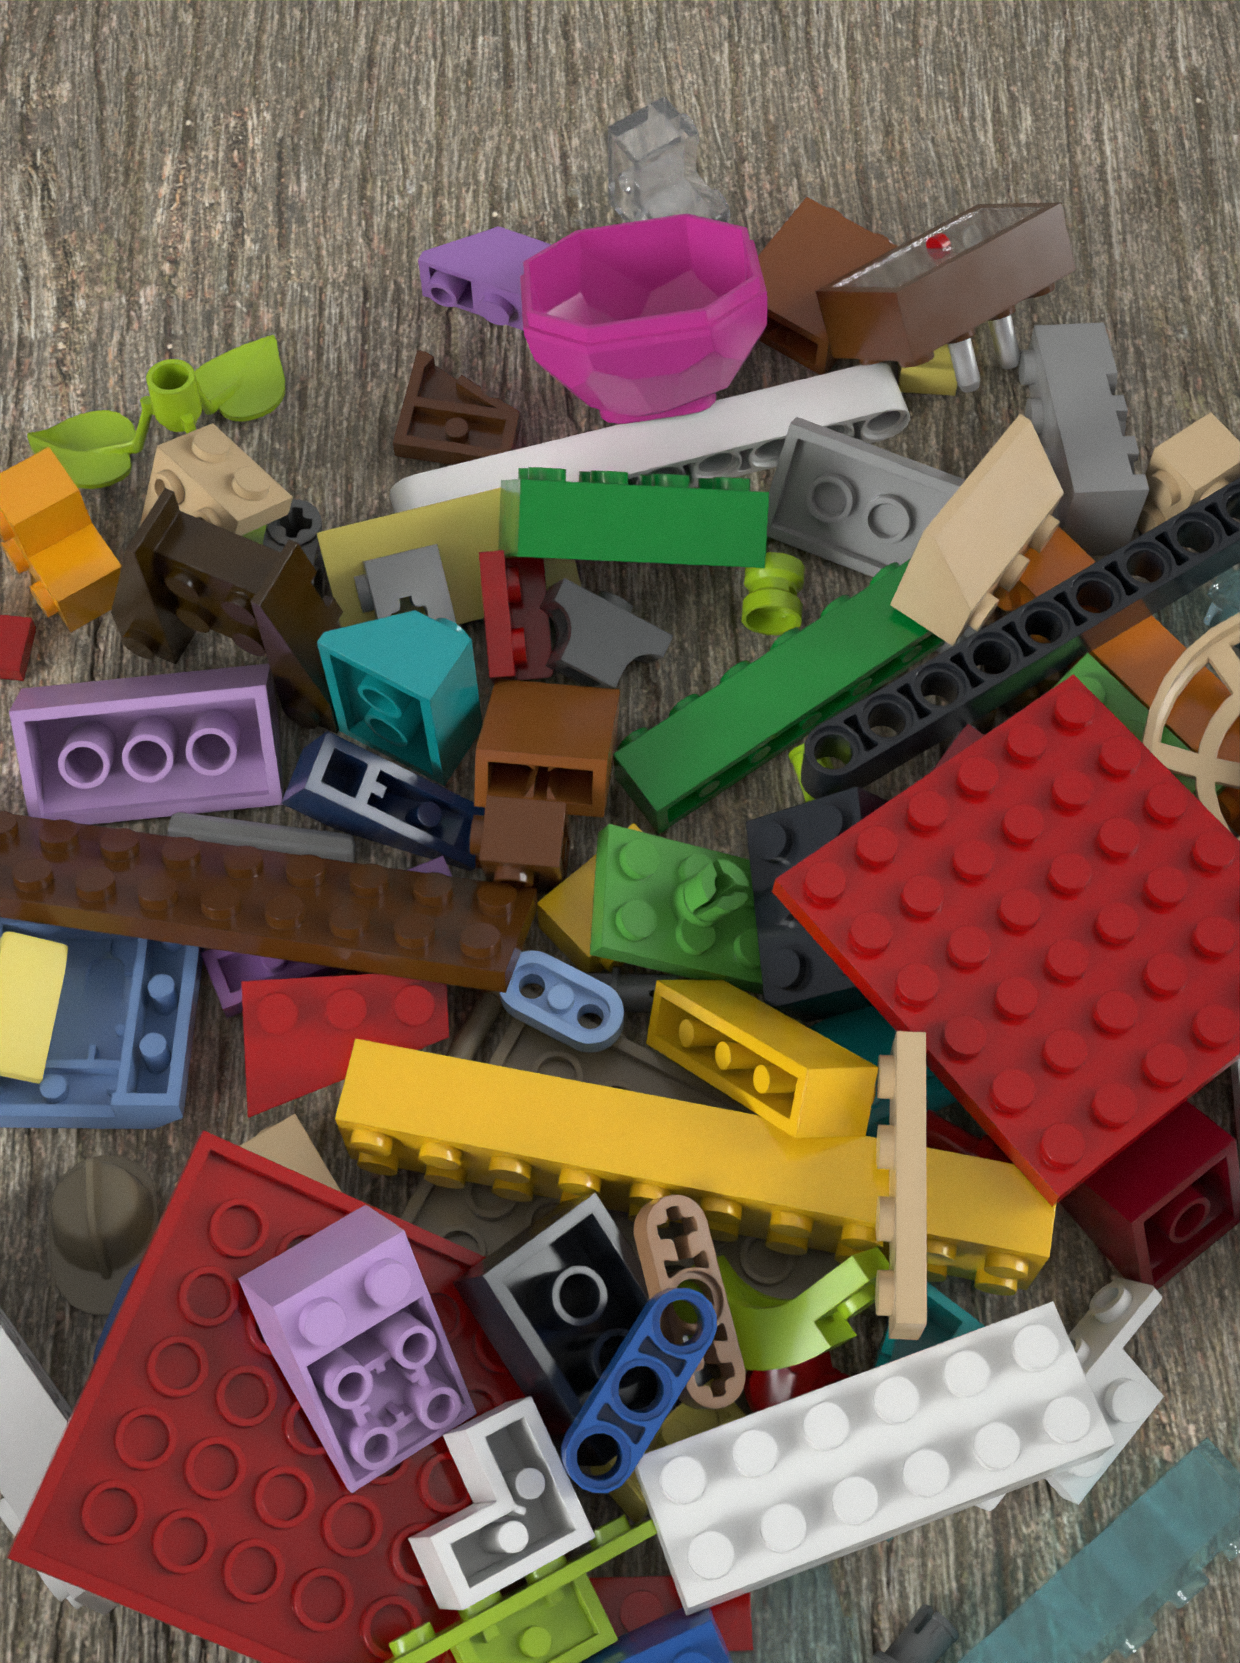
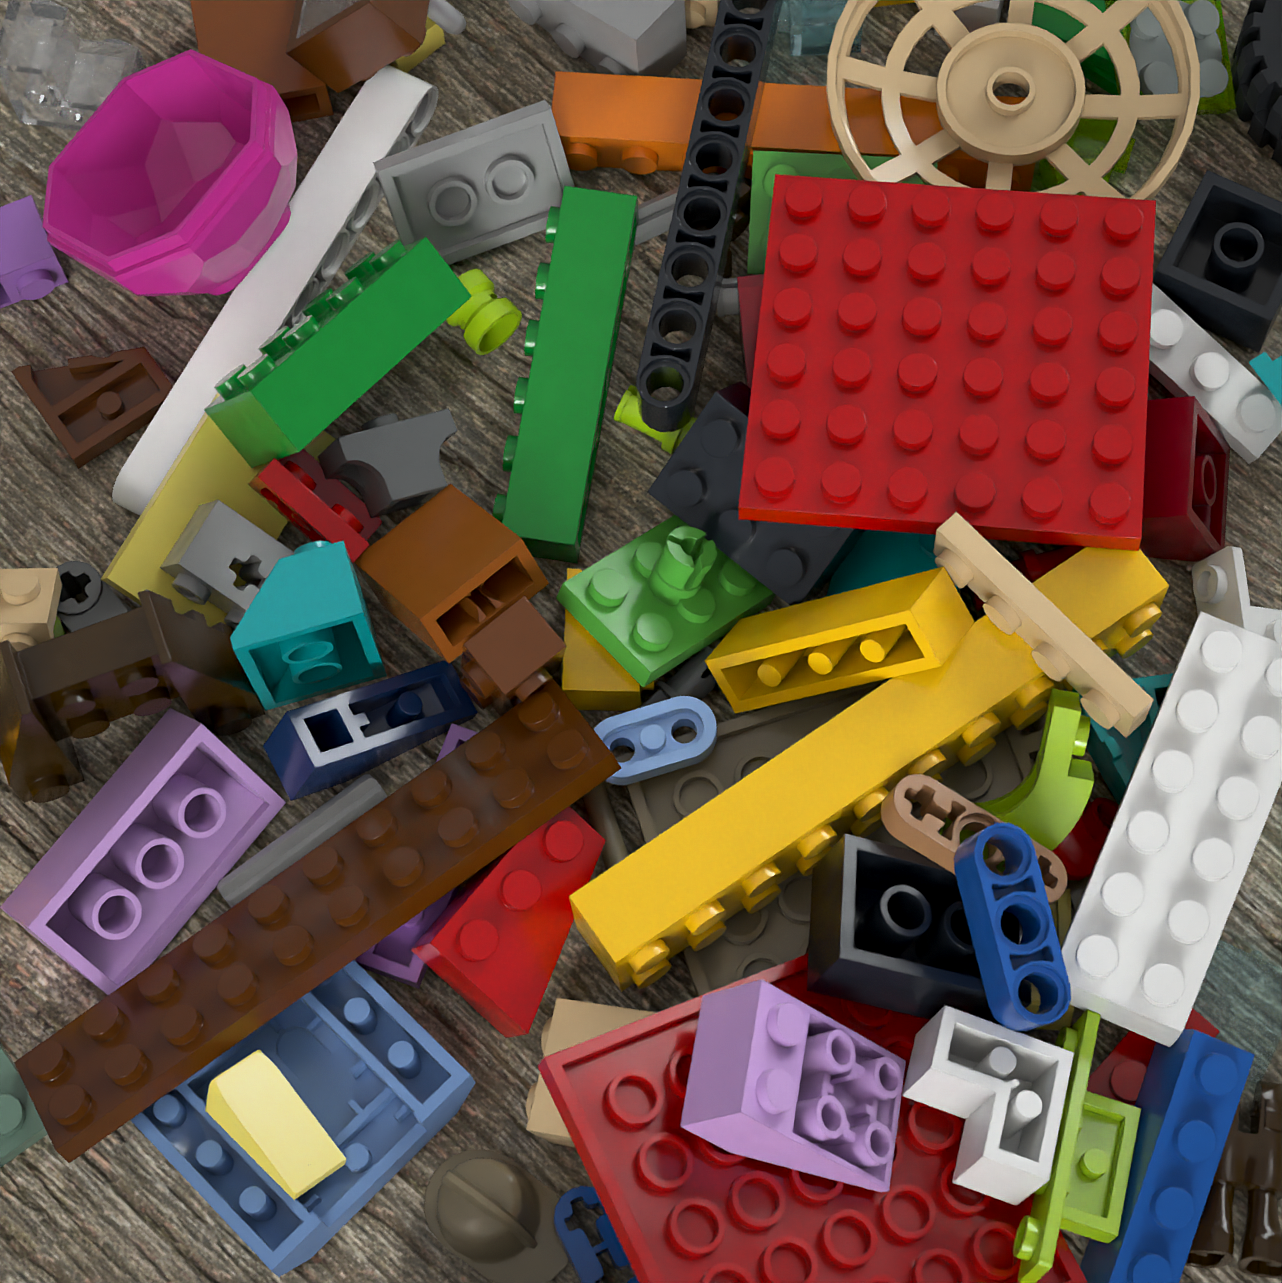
camera: 40 degrees left, 5 degrees up
(982, 537) = (607, 133): tan slope -> none

